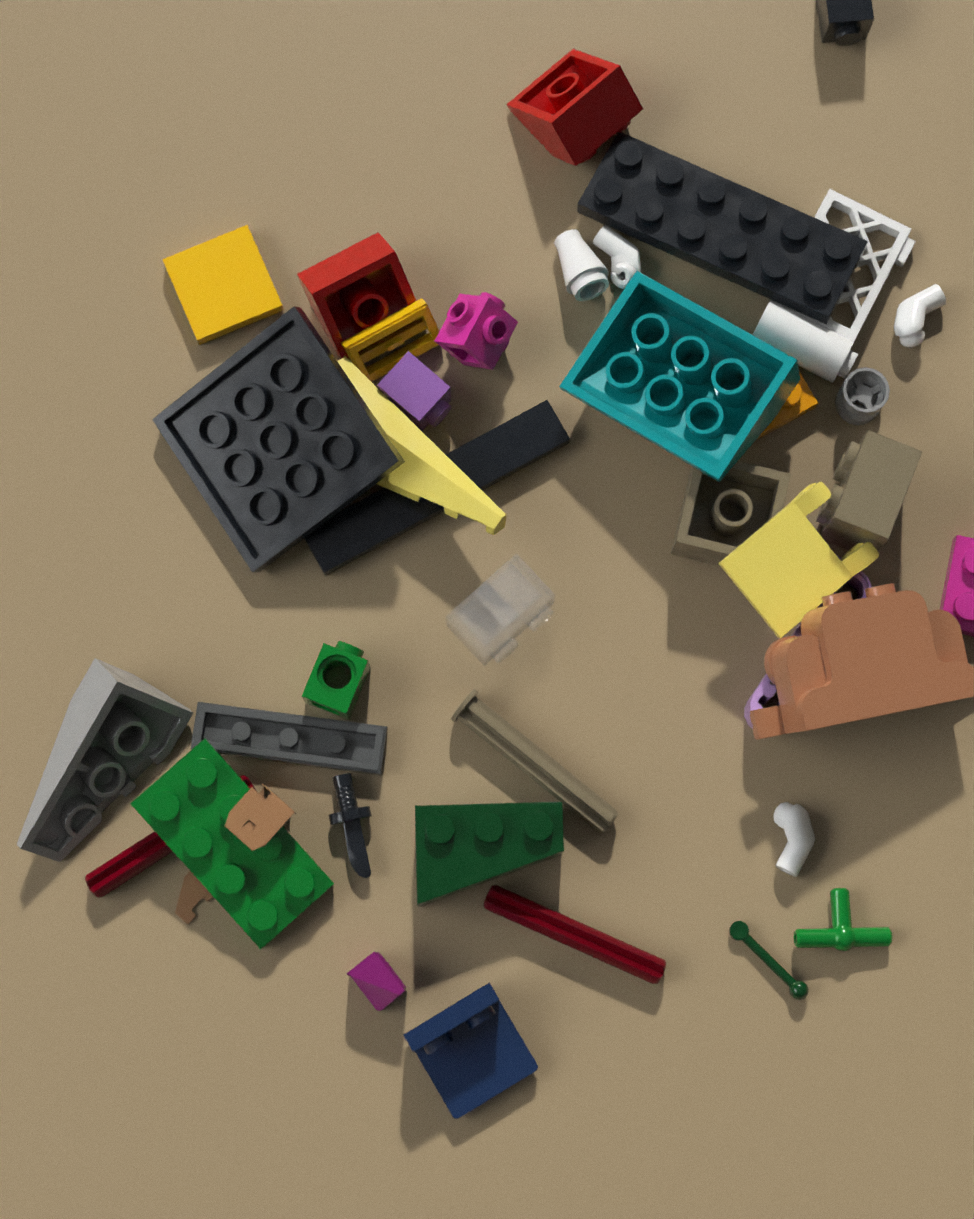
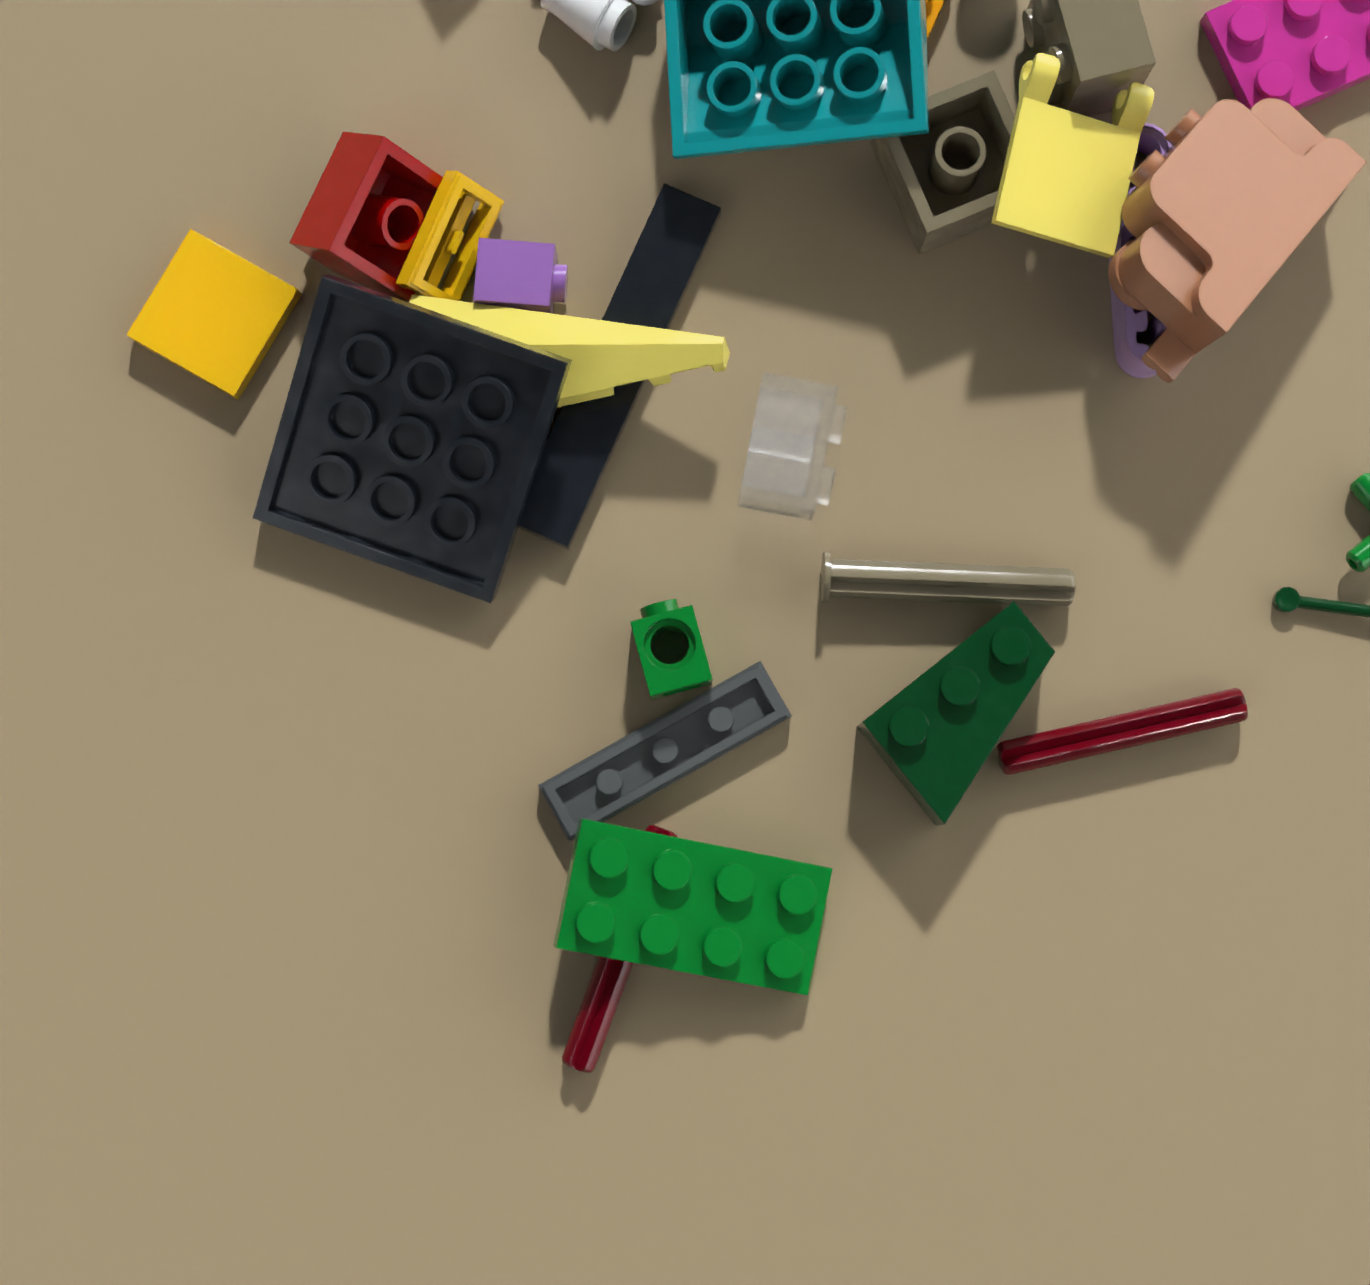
camera: 35 degrees left, 5 degrees up
(103, 746) = (472, 903): light grey wedge -> none
(254, 822) = (705, 868): medium nougat piece -> none
(350, 817) = (794, 785): black piece -> none
(377, 980) = (956, 934): magenta slope -> none
(471, 1051) = (1108, 932): dark blue bracket -> none
(476, 330) = (533, 161): dark pink brick -> none
(799, 836) = (1277, 453): white arm -> none

